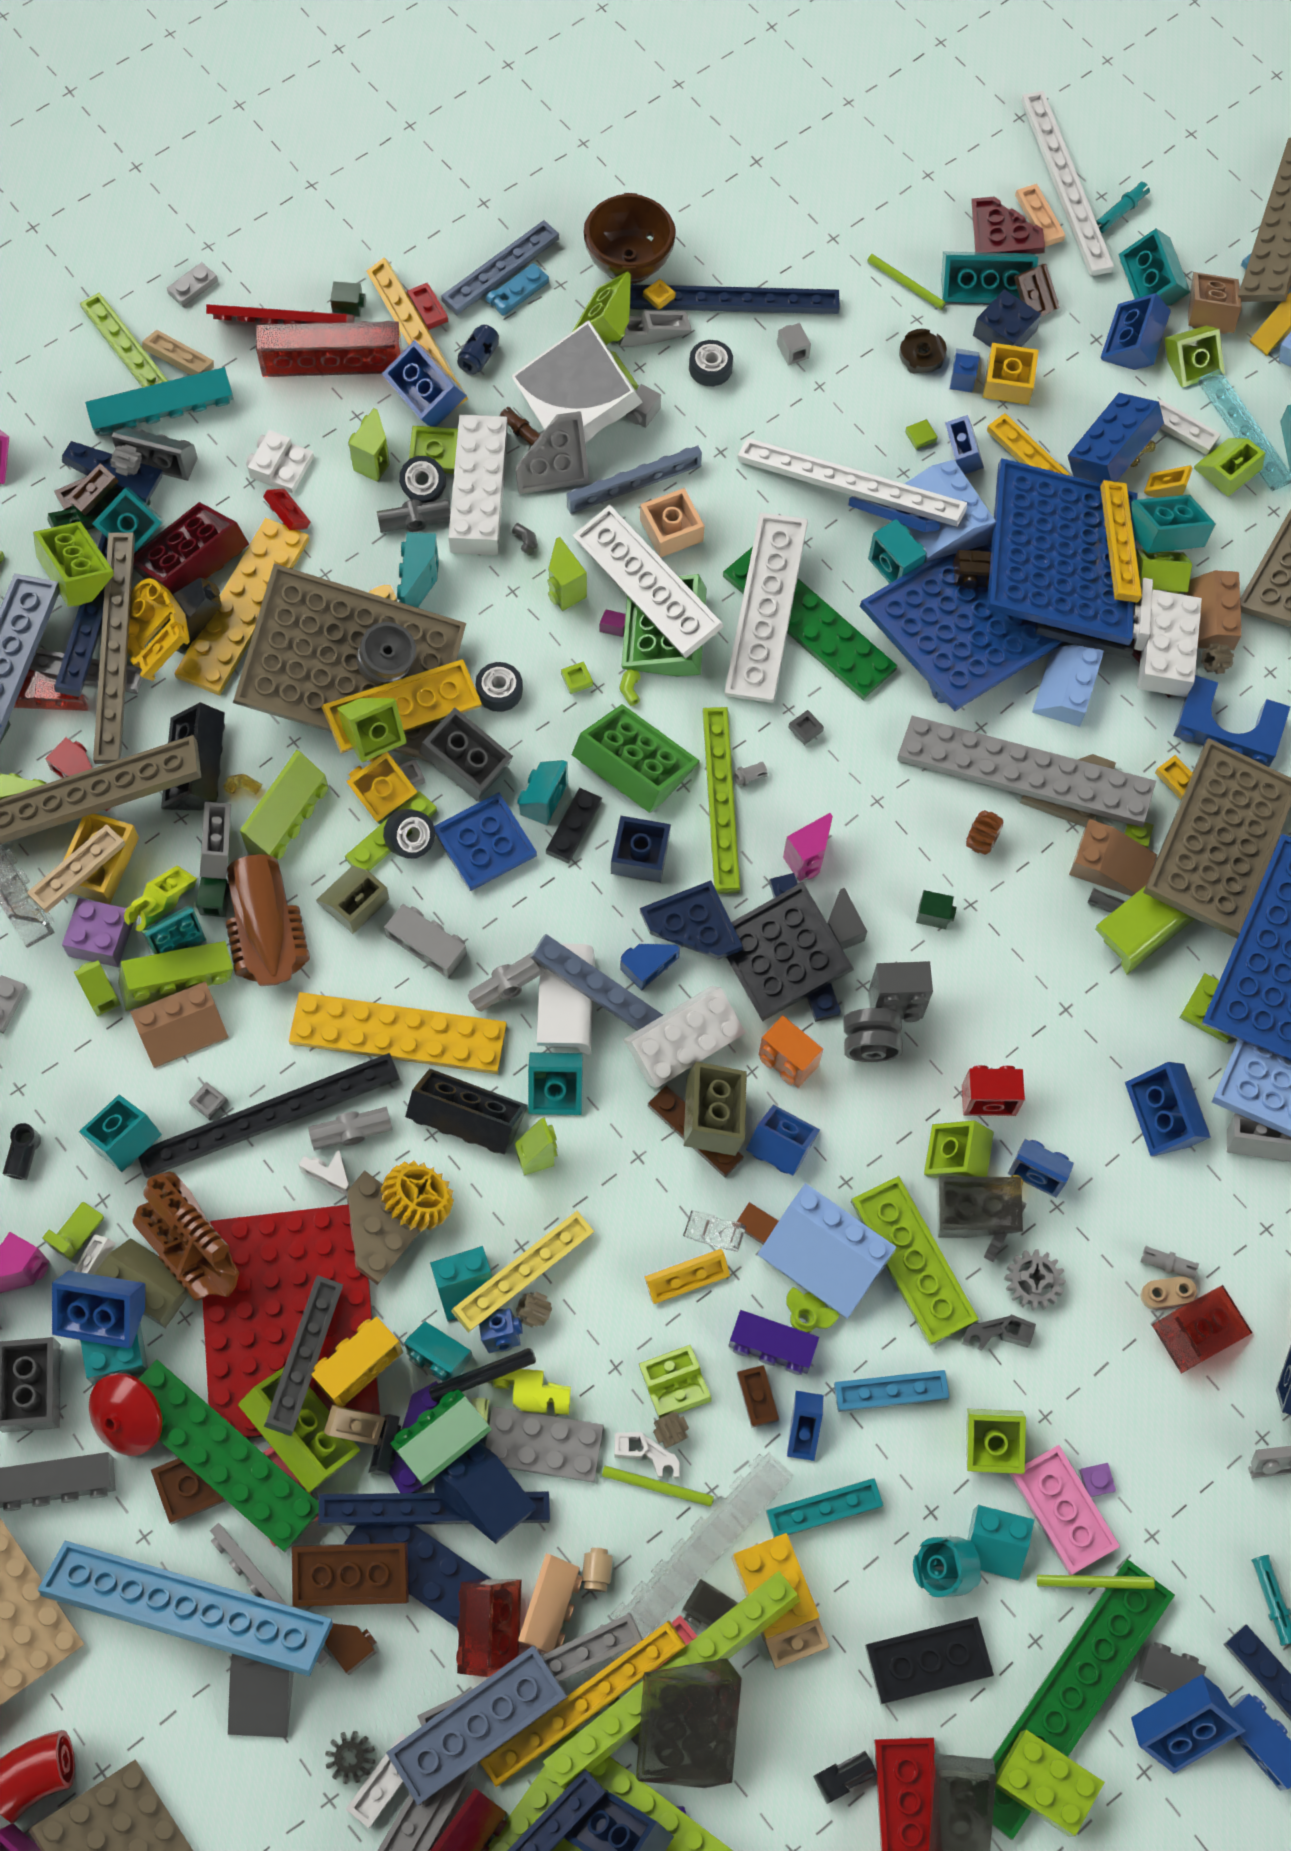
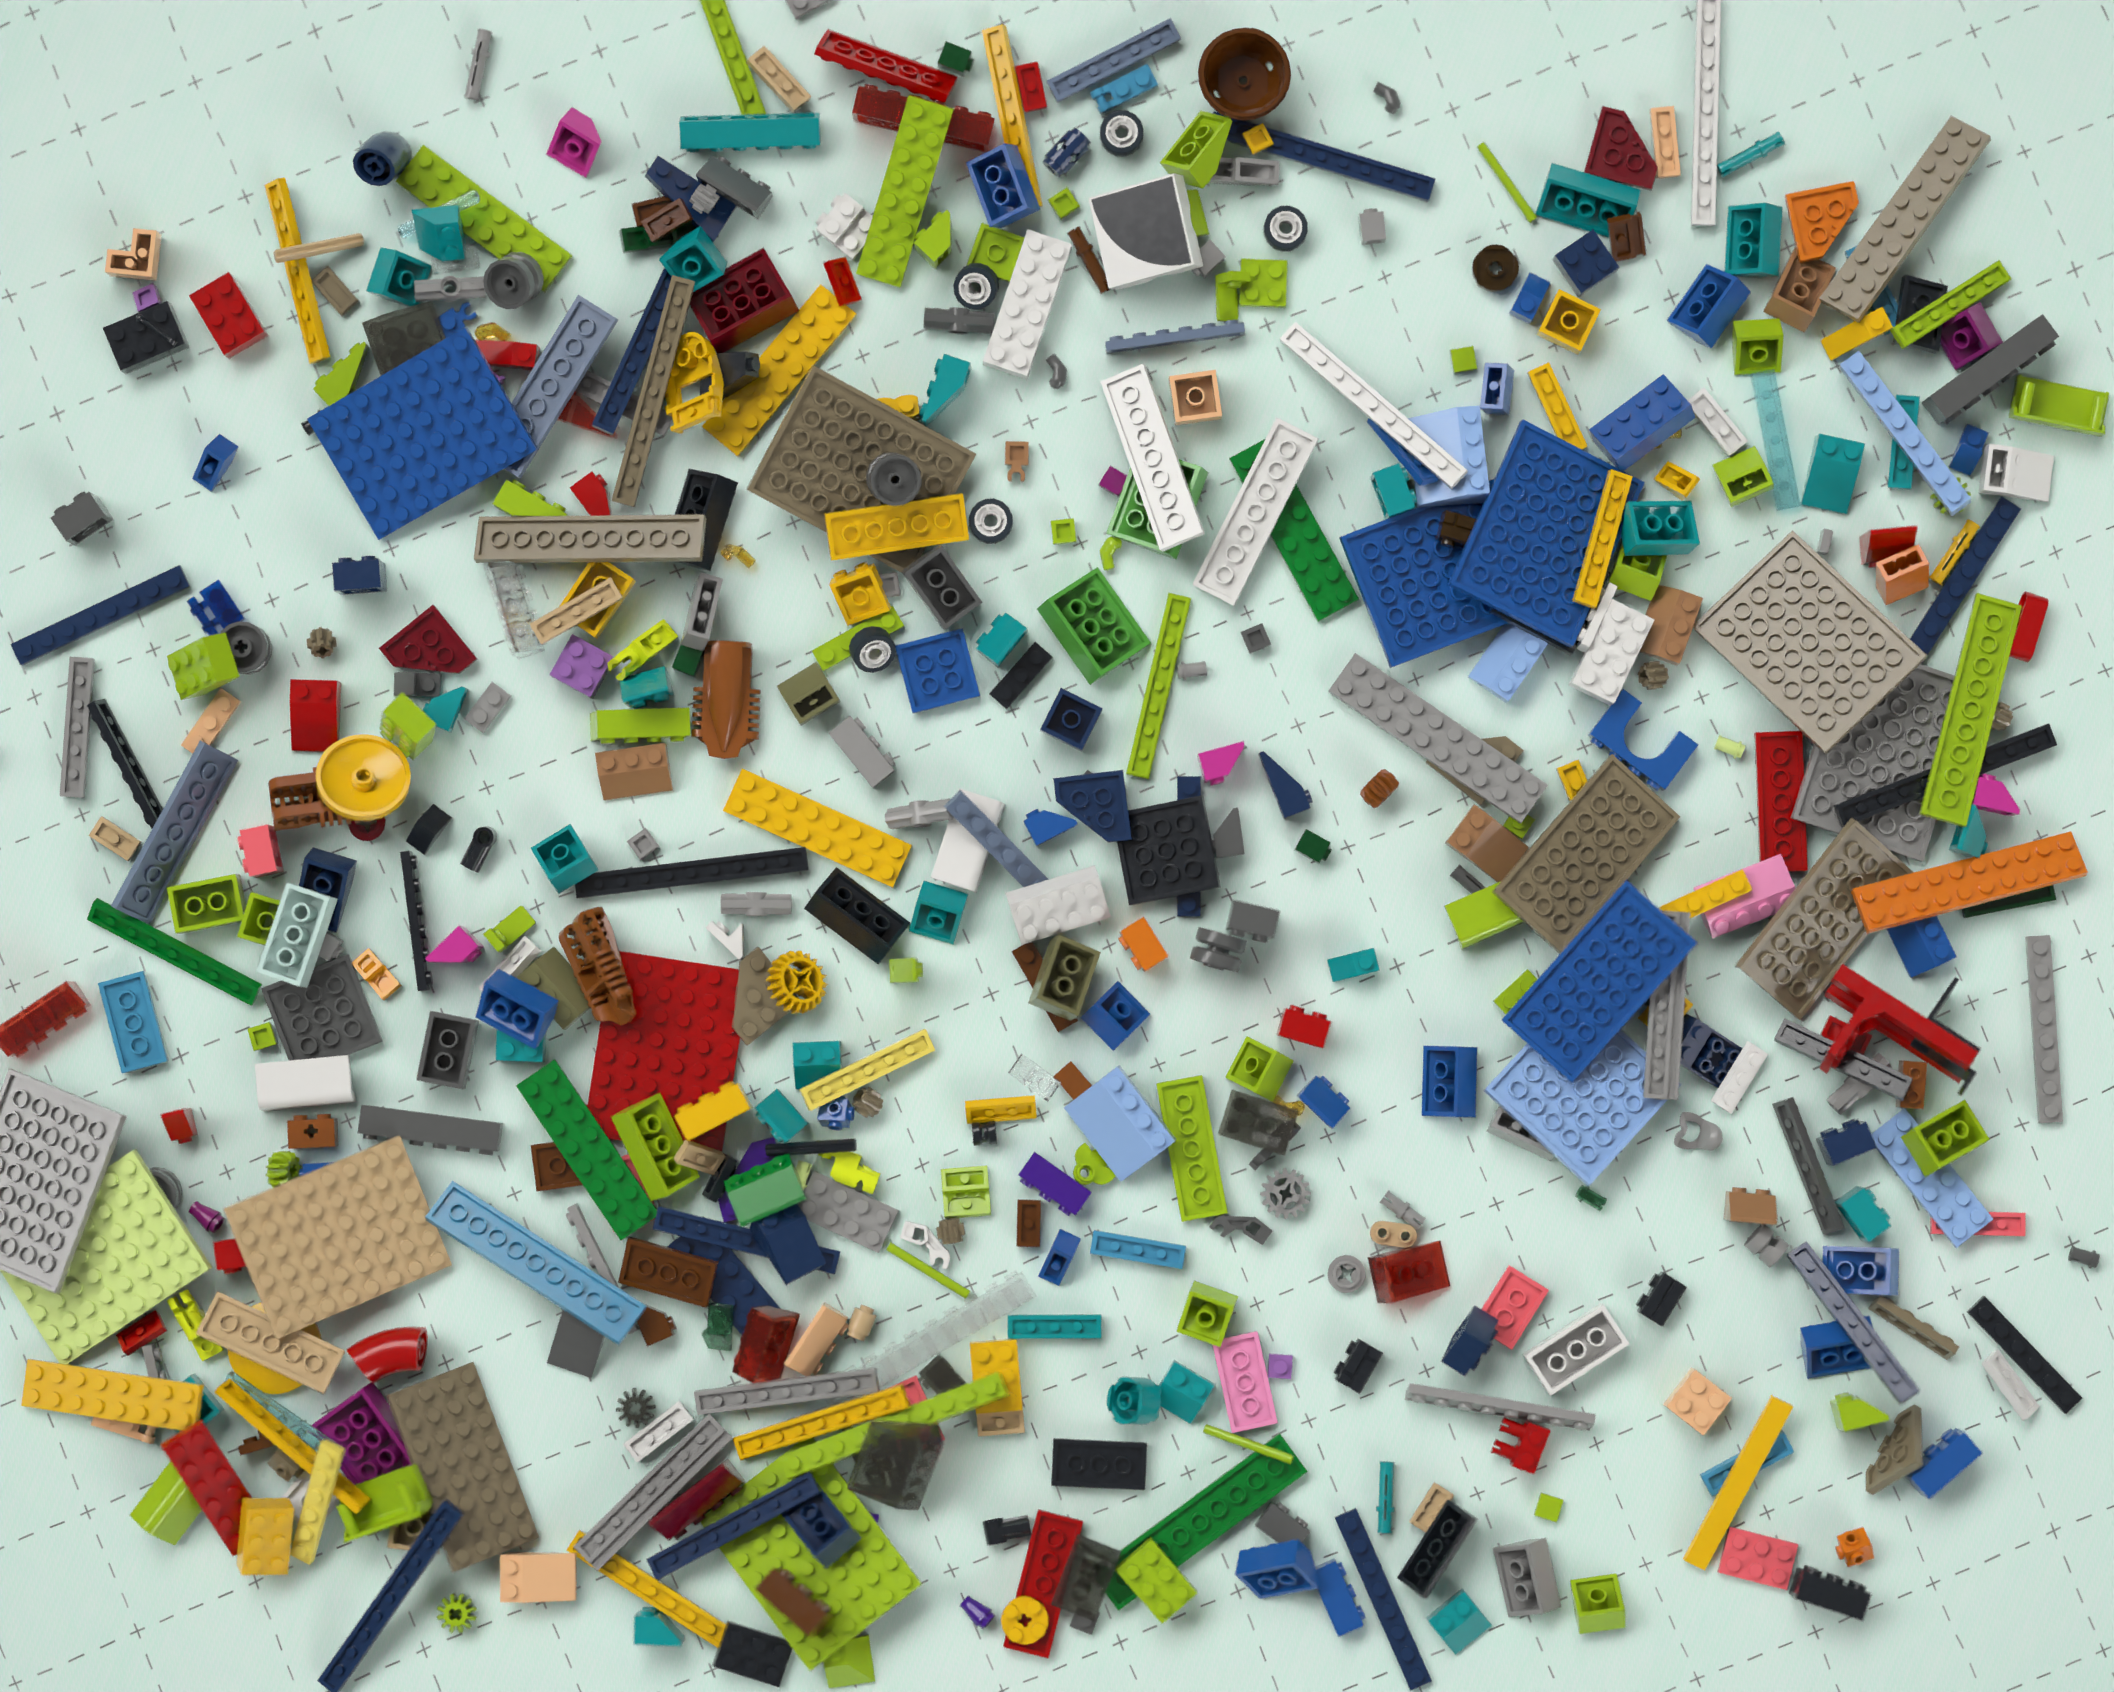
camera: 20 degrees right, 20 degrees up
(72, 561) = (633, 294): lime slope -> none
(97, 987) = (571, 720): lime slope -> none
(125, 1414) = (520, 1097): red dish -> none
(284, 807) = (769, 595): lime slope -> none
(303, 1356) = (672, 1093): dark grey plate -> none
(327, 408) = (904, 190): none -> lime plate
(372, 726) = (862, 547): lime slope -> none
(429, 1625) = (719, 1327): none -> clear green slope
(476, 1725) = (737, 1414): sand blue plate -> none
(488, 395) = (1063, 203): none -> lime tile
(508, 622) = (1016, 456): none -> medium nougat plate
(526, 321) = (1126, 145): none -> wheel
(556, 457) = (1105, 300): light grey plate -> none
(566, 577) = (1079, 430): lime slope -> none
(669, 422) = (1226, 294): none -> lime bracket
(682, 1304) = (989, 1133): none -> black wheel
(704, 416) = (1266, 283): none -> lime plate
(771, 237) = (1390, 96): none -> dark grey arm
(887, 860) = (1287, 791): none -> dark blue slope
(1022, 1016) = (1353, 965): none -> teal slope
(1146, 1351) = (1357, 1275): none -> light grey gear
(1186, 1451) = (1358, 1365): none -> black brick
(1206, 239) = (1819, 217): none -> orange plate

